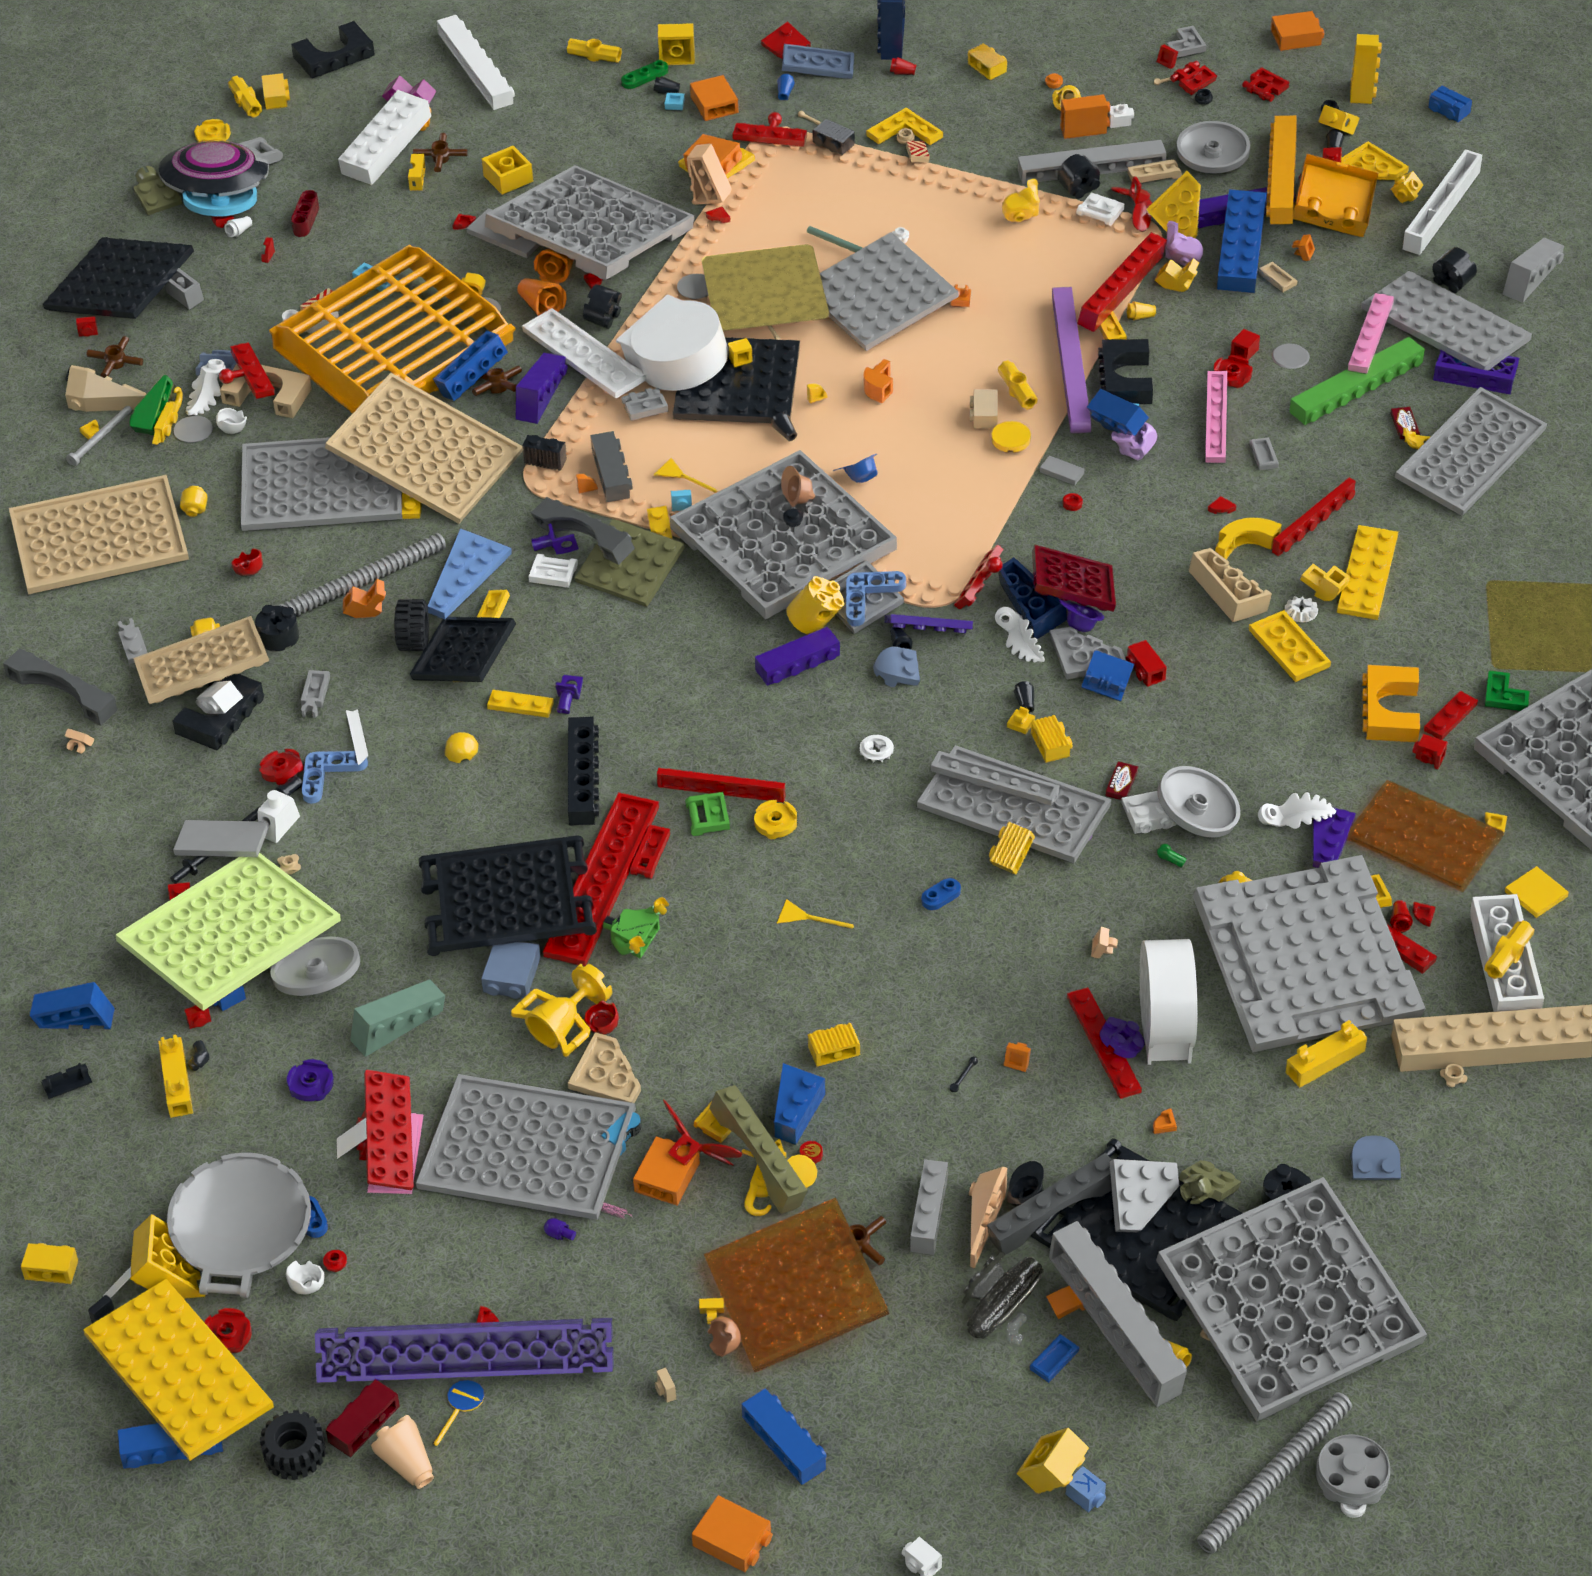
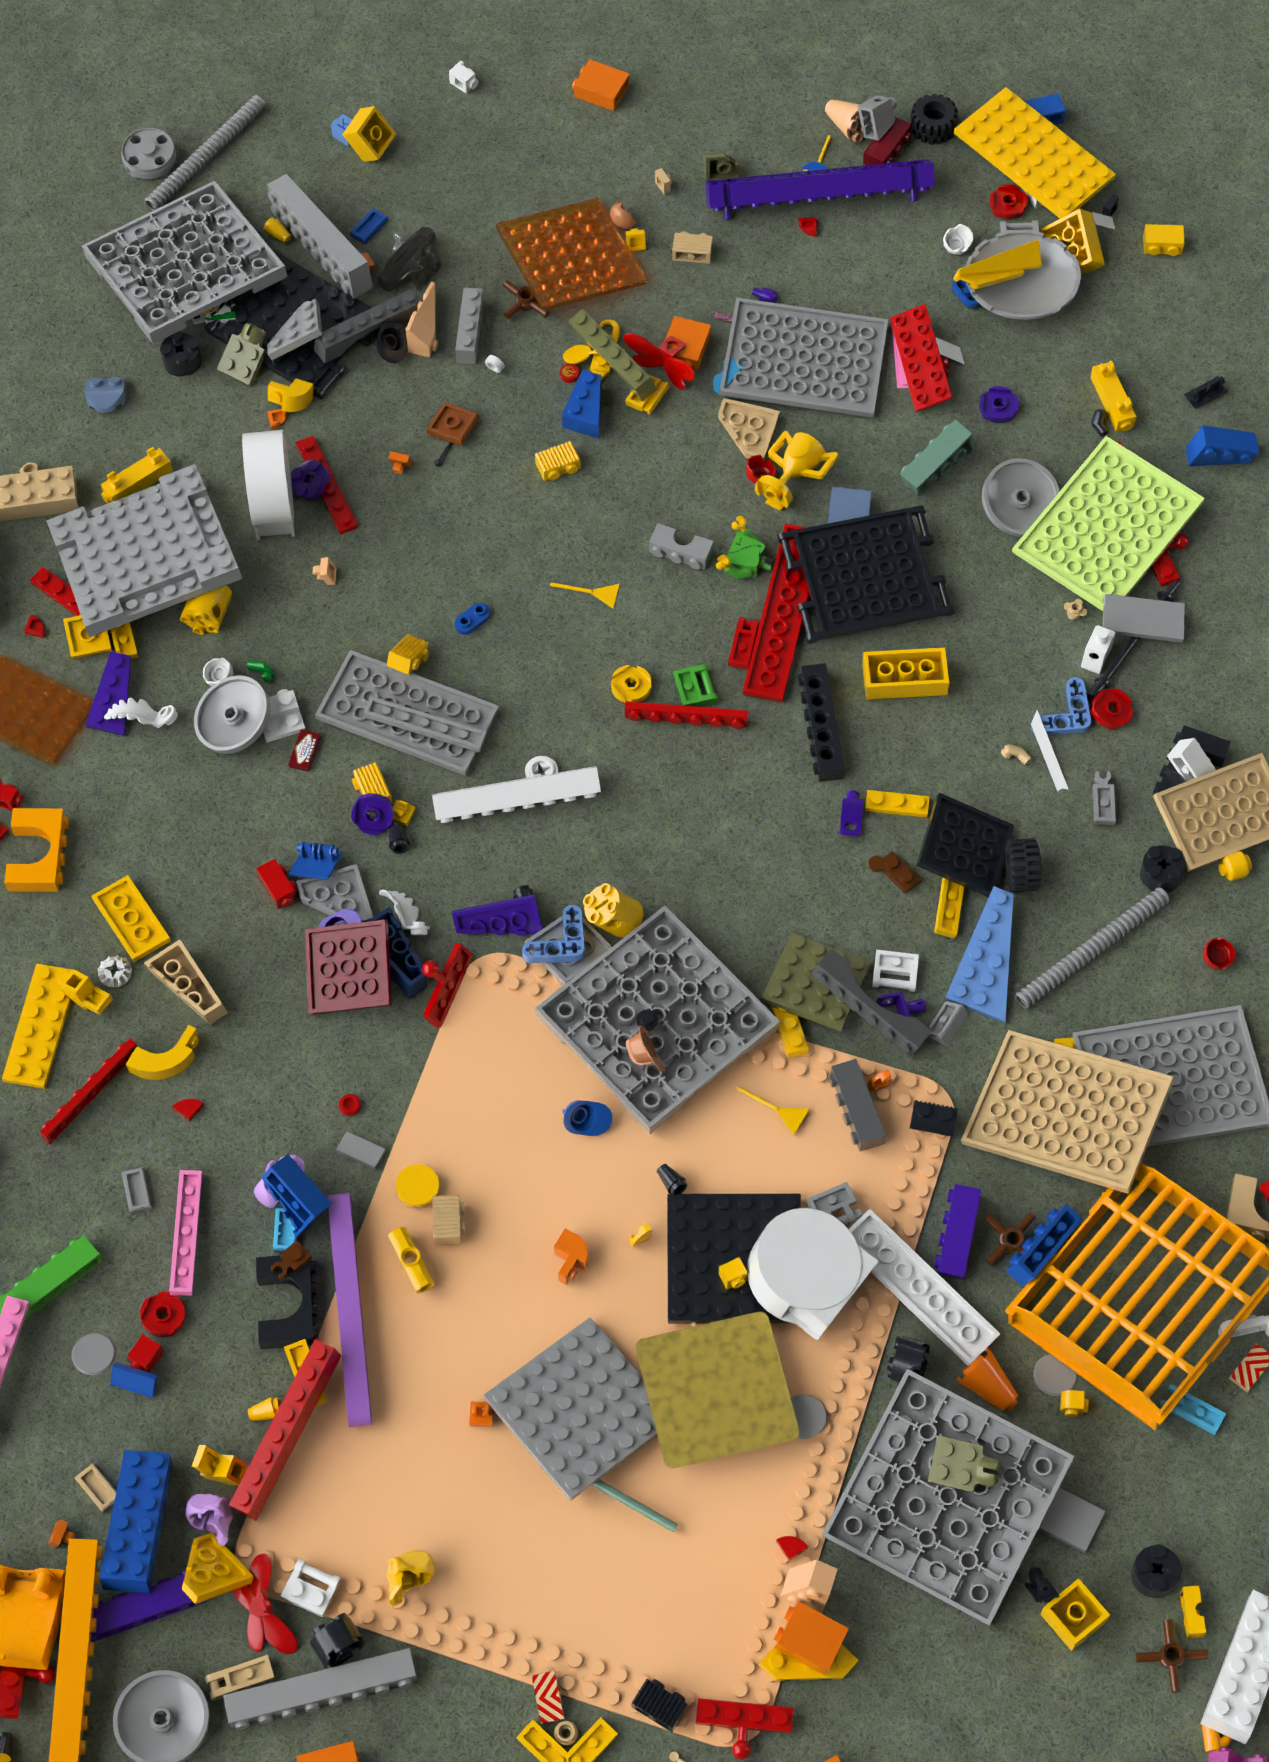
camera: 175 degrees right, 15 degrees up
(267, 1219) = (1002, 266): none -> yellow wedge
(336, 1265) = (939, 265): red plate -> none
(364, 603) = (1082, 909): orange brick -> none
(373, 1417) = (877, 116): none -> light grey torso
(389, 739) = (1017, 751): none -> tan arm
(437, 190) = (1156, 1558): none -> black brick
(461, 747) = (943, 746): yellow hair -> none
(463, 220) = (1112, 1529): red tile -> none
(485, 803) = (905, 673): none -> yellow brick
(516, 532) = (947, 1022): none -> light grey slope
(528, 176) = (1040, 1588): none -> black hinge
(534, 649) = (895, 870): none -> reddish brown hinge
(574, 215) = (962, 1465): none -> olive plate
(588, 1394) = (721, 166): none -> olive slope
(640, 1293) = (692, 247): none -> tan brick
(681, 499) = (772, 1059): medium azure plate -> none
(688, 937) = (694, 554): none -> light grey arch
(784, 1436) = (570, 148): blue brick -> none
(797, 656) = (631, 867): dark purple brick -> none
(897, 666) = (526, 867): sand blue slope -> none
(901, 1162) = (494, 364): none -> white tile
(902, 234) = (560, 1526): white plate -> none
(903, 720) = (515, 793): none -> white brick
(954, 1097) = (452, 423): none -> dark orange plate
(1050, 706) = (372, 802): none -> dark purple plate
(1120, 384) = (293, 1258): none -> reddish brown plate
(1143, 1129) = (292, 397): none -> yellow brick
(1216, 843) = (217, 669): none -> white hair
(1265, 334) = (134, 1380): none -> blue tile
(1401, 918) = (56, 614): red cone -> none

